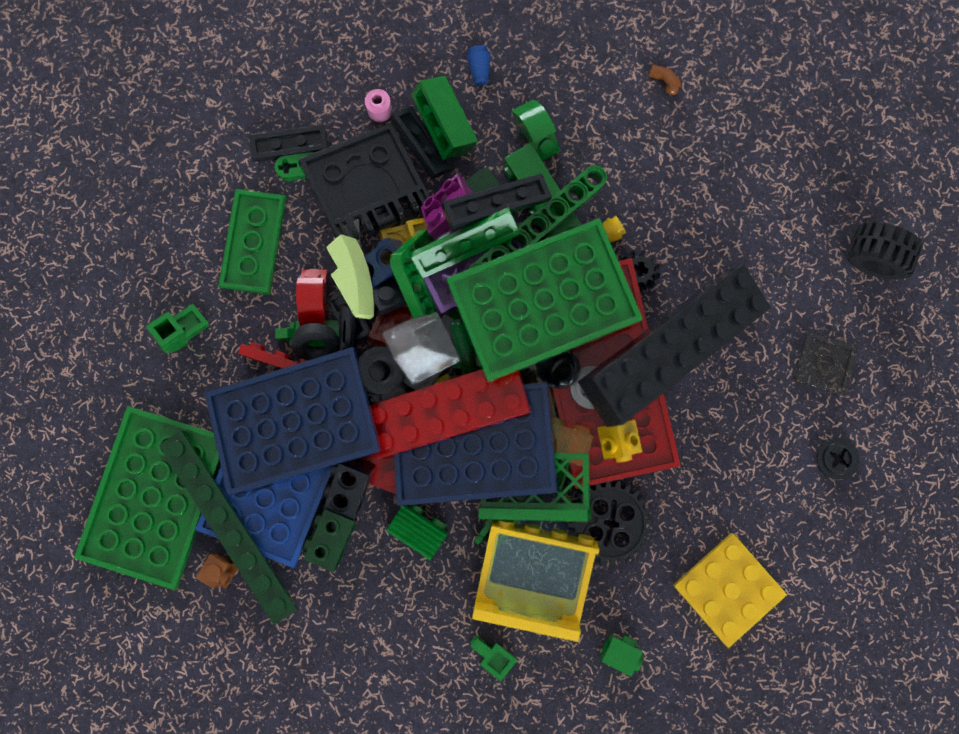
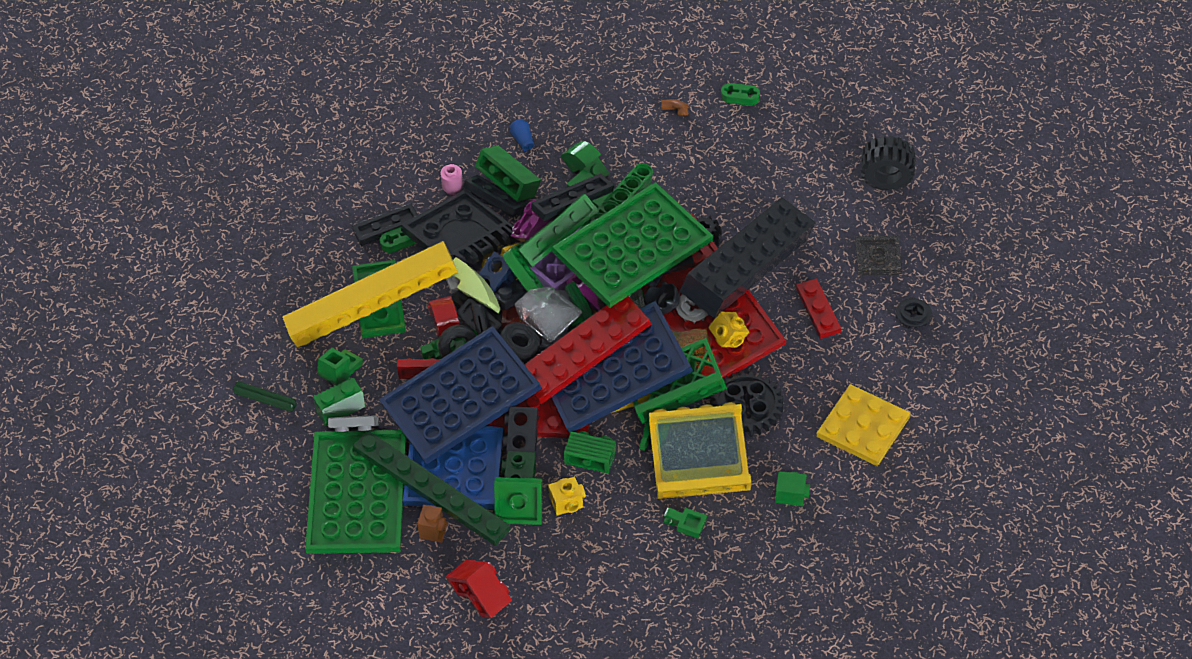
camera: 15 degrees left, 30 degrees down
(91, 335) = (265, 396): none -> dark green axle
(164, 374) = (339, 401): none -> green brick
(169, 411) = (345, 422): none -> light grey plate
(235, 249) = (370, 294): none -> yellow brick
(238, 676) = (481, 586): none -> red brick
(315, 578) = (518, 500): none -> green plate
(365, 592) = (566, 495): none -> yellow brick
(733, 415) = (818, 308): none -> red plate
(746, 83) = (740, 94): none -> green beam

